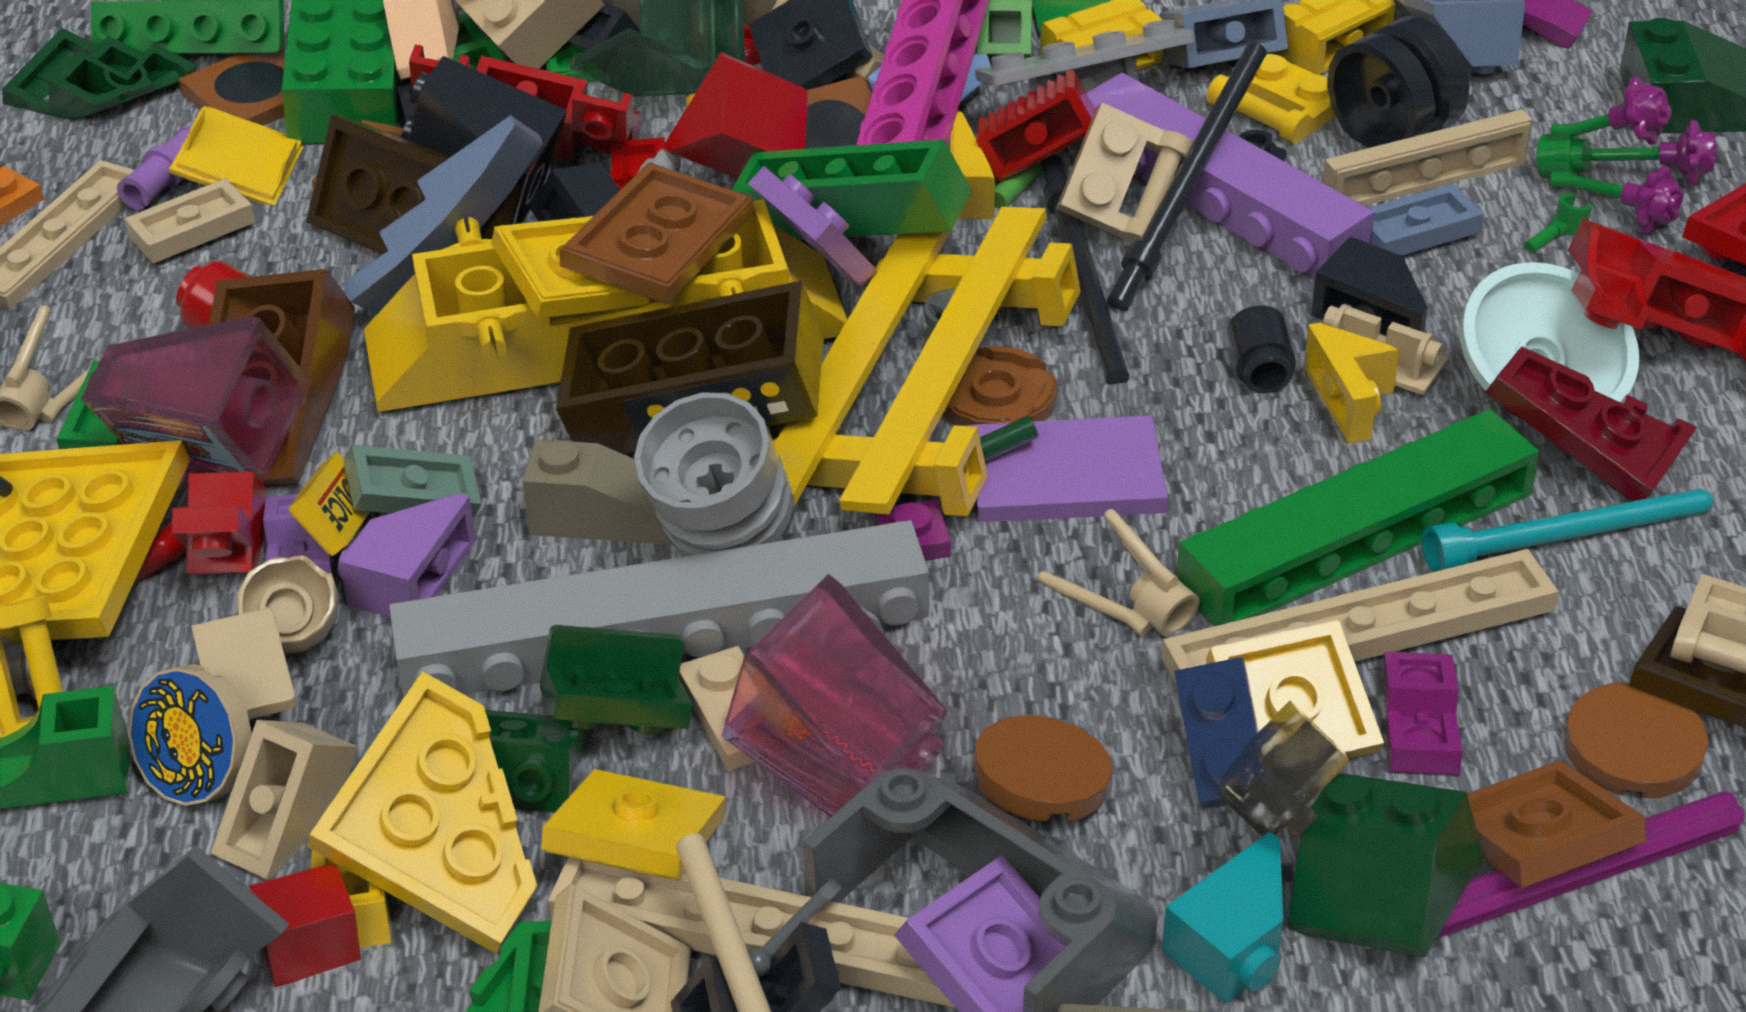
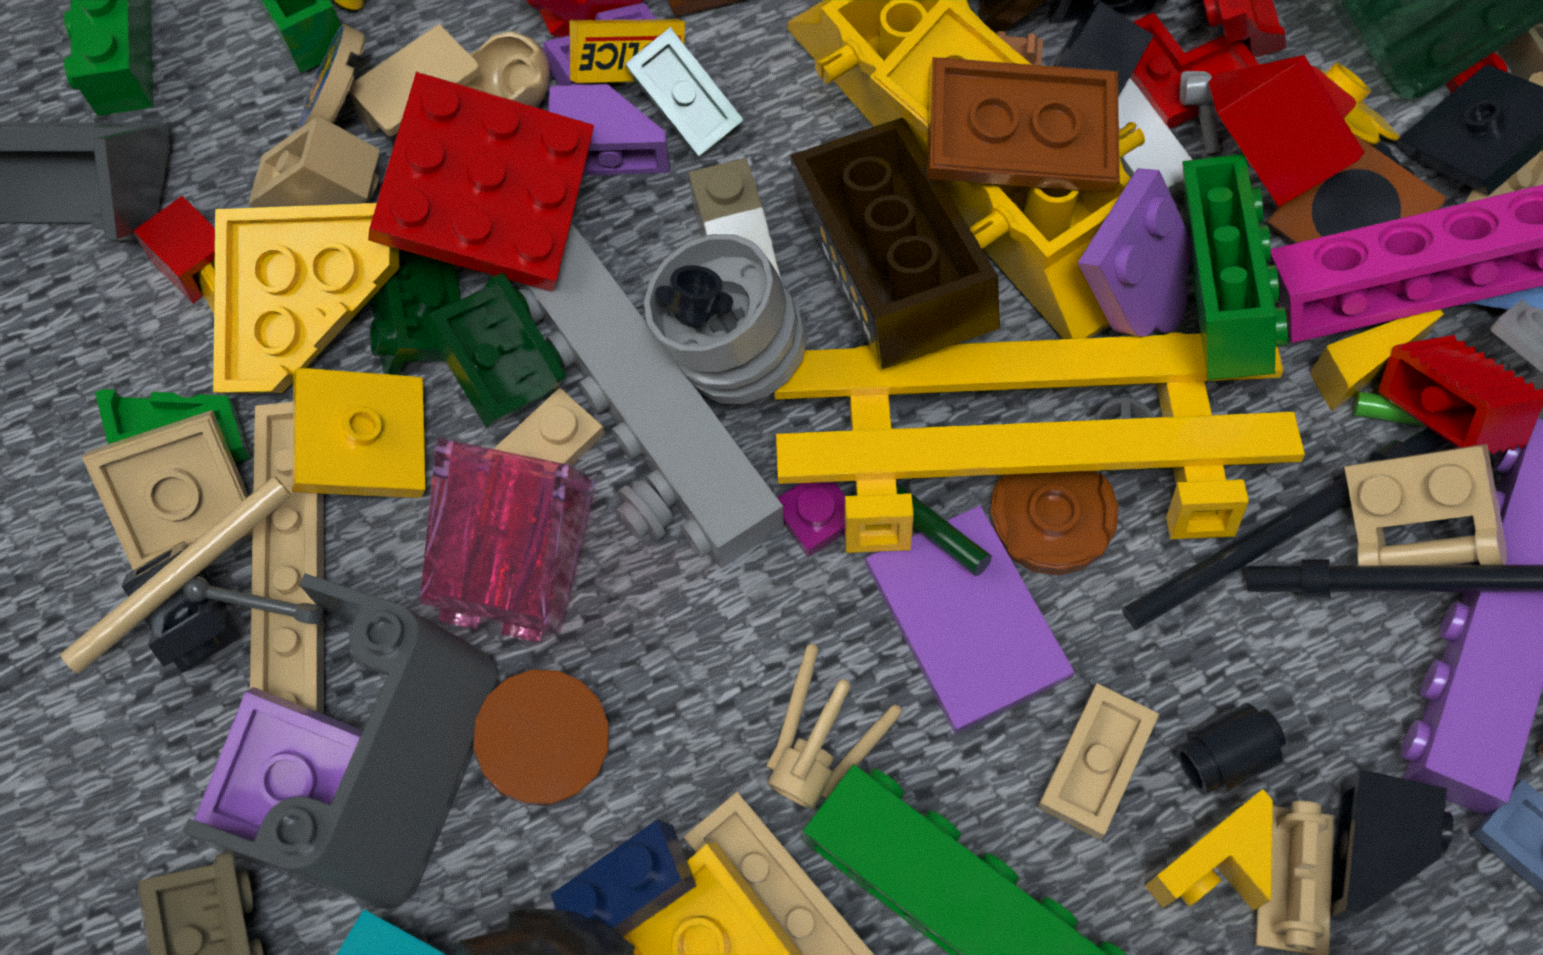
camera: 70 degrees right, 25 degrees up
(439, 607) = (481, 182): none -> red plate
(695, 465) = (694, 295): none -> black plate
(1236, 425) = (1098, 761): none -> tan plate

